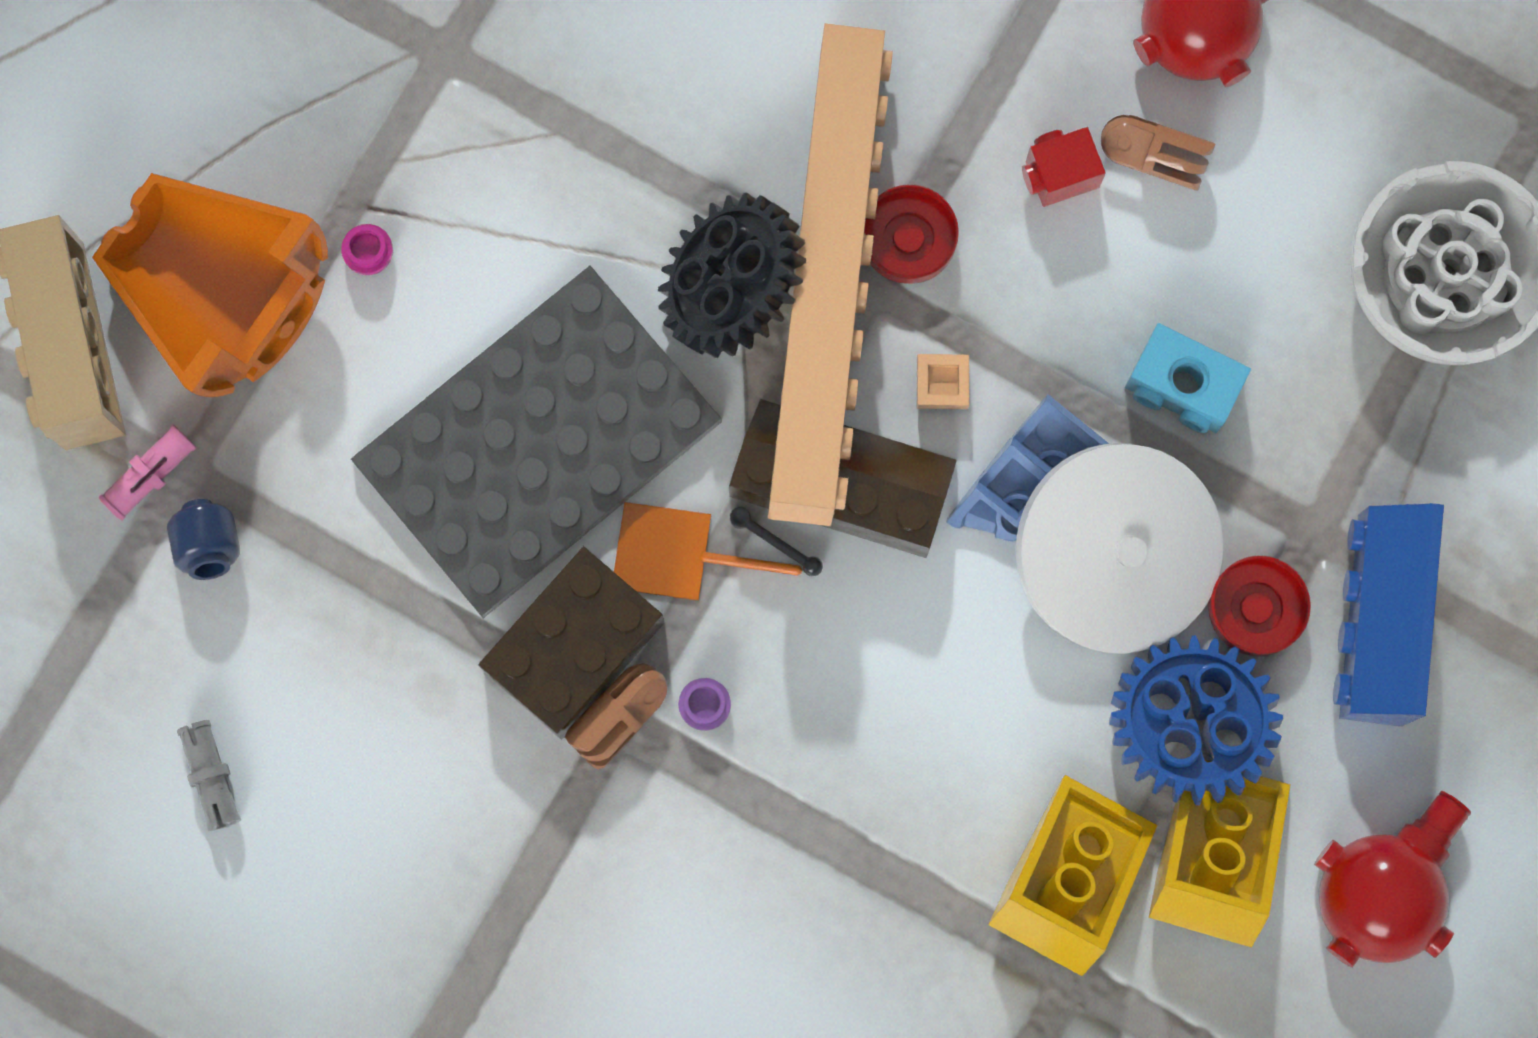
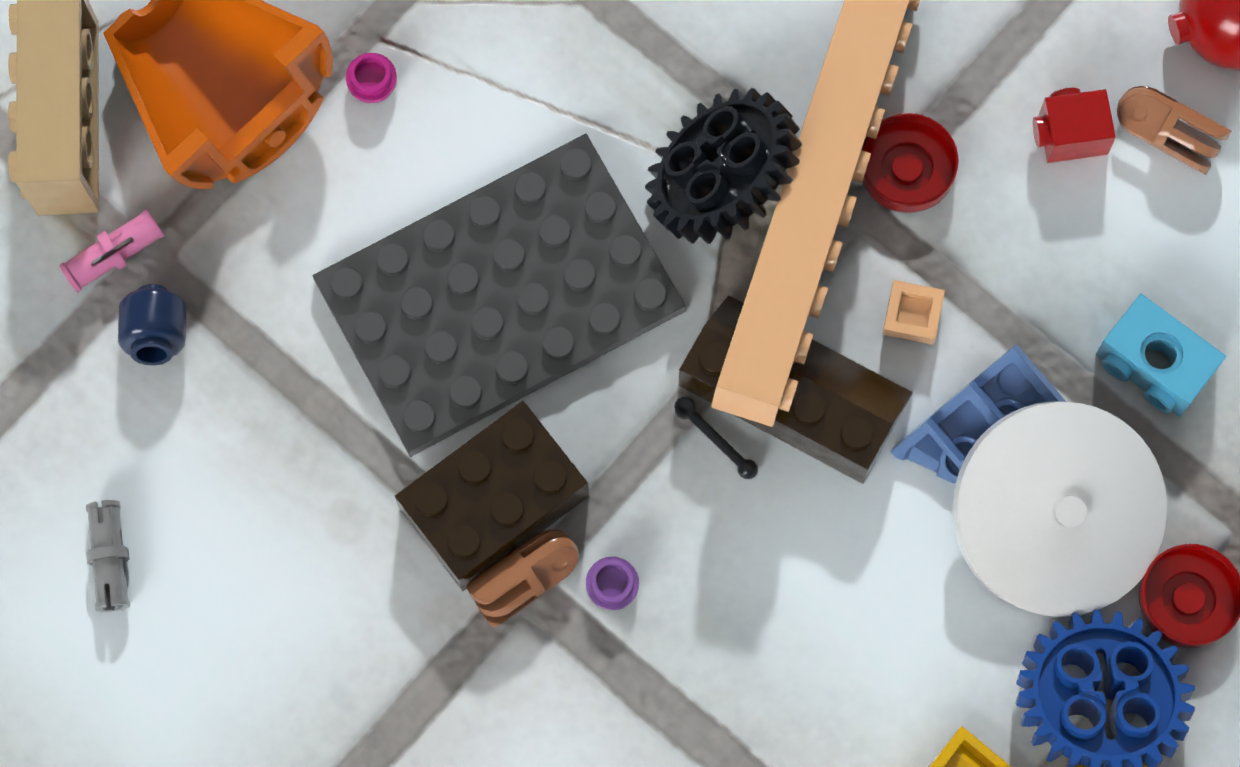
camera: 15 degrees right, 5 degrees down
(666, 552) = (606, 424): orange piece -> none

